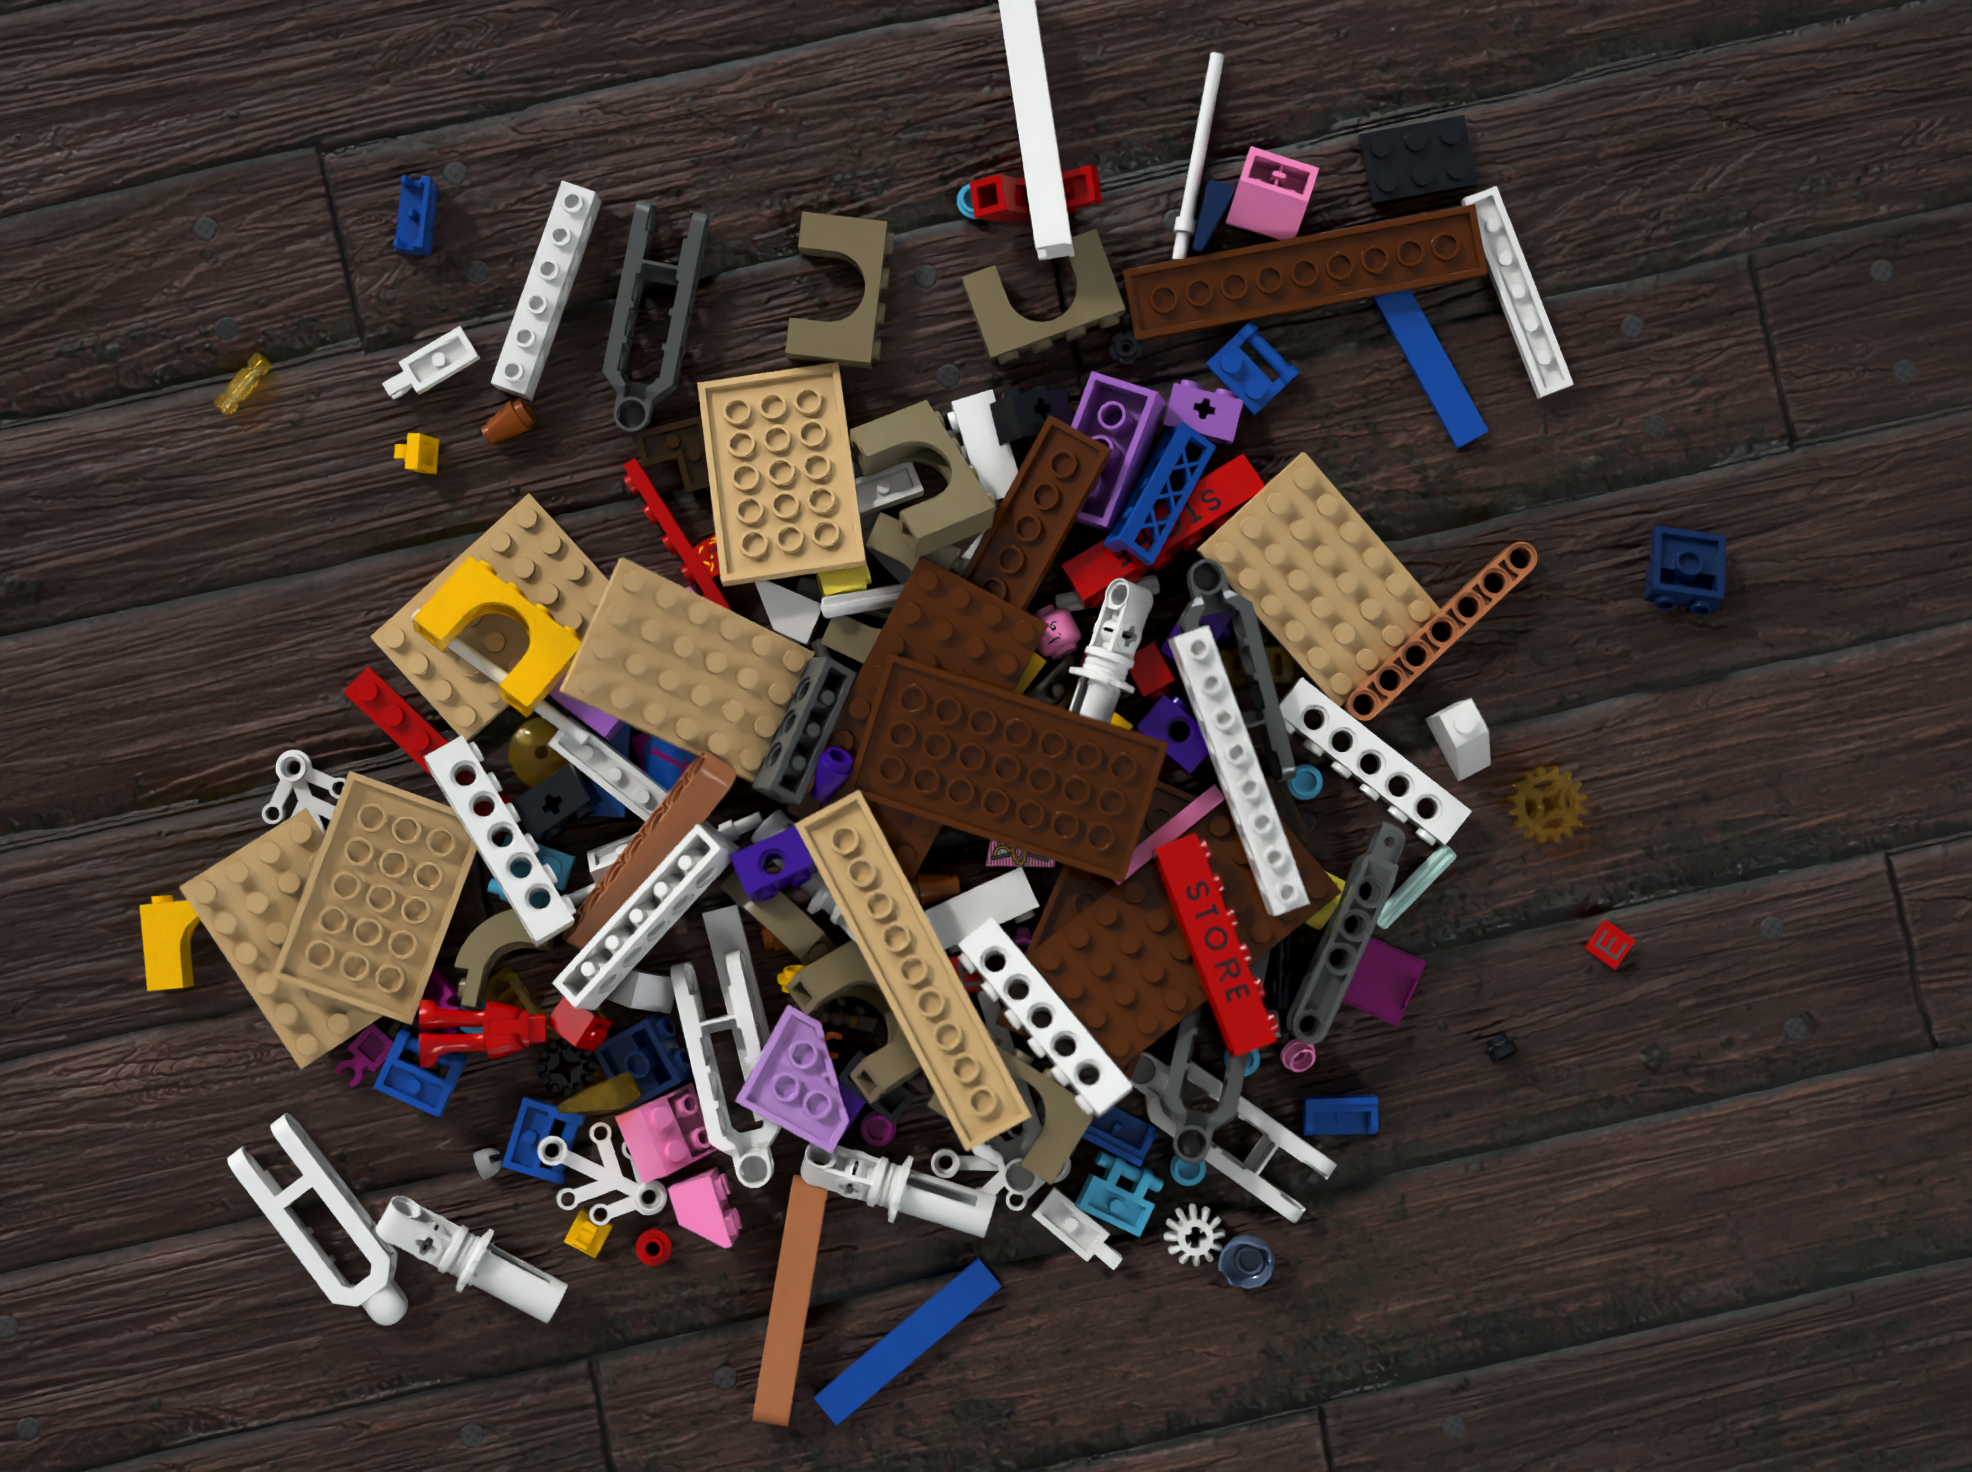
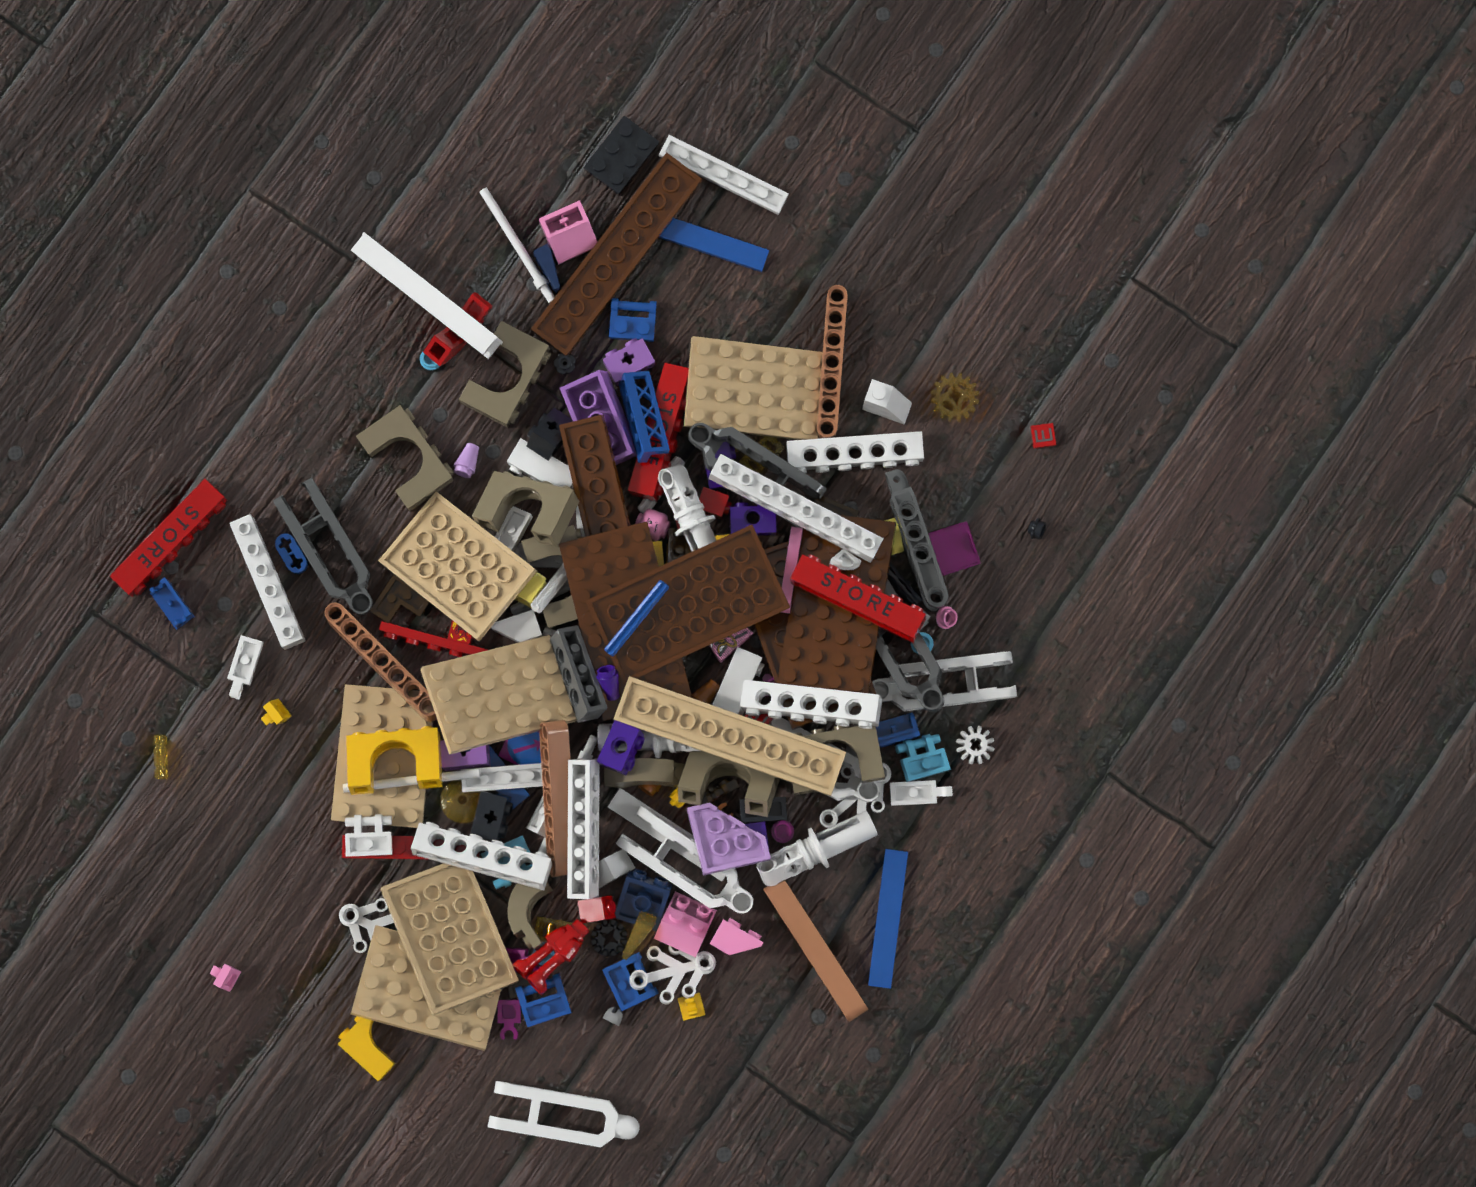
camera: 45 degrees left, 5 degrees down
(85, 708) = (225, 976): none -> bright pink tile
(385, 705) = (368, 843): none -> white plate
(470, 1258) = (647, 1066): white piece -> none
(479, 136) = (168, 538): none -> red brick
(509, 421) = (305, 658): dark orange cone -> none
(591, 489) = (374, 654): none -> nougat beam
(597, 281) = (295, 551): none -> blue beam
(661, 1239) = (728, 976): red plate -> none
(906, 359) = (466, 462): none -> lavender cone
(929, 729) = (636, 618): none -> blue axle
(1186, 1173) = (944, 717): medium azure plate -> none
(1240, 885) = (845, 560): none -> white tile
(1246, 1261) = (1010, 735): sand blue hair -> none
(1307, 782) = (834, 488): medium azure plate -> none
(1339, 1114) = (991, 628): blue hinge -> none
(1416, 885) = (928, 490): light aqua axle -> none
(1686, 570) = (918, 232): dark blue plate -> none

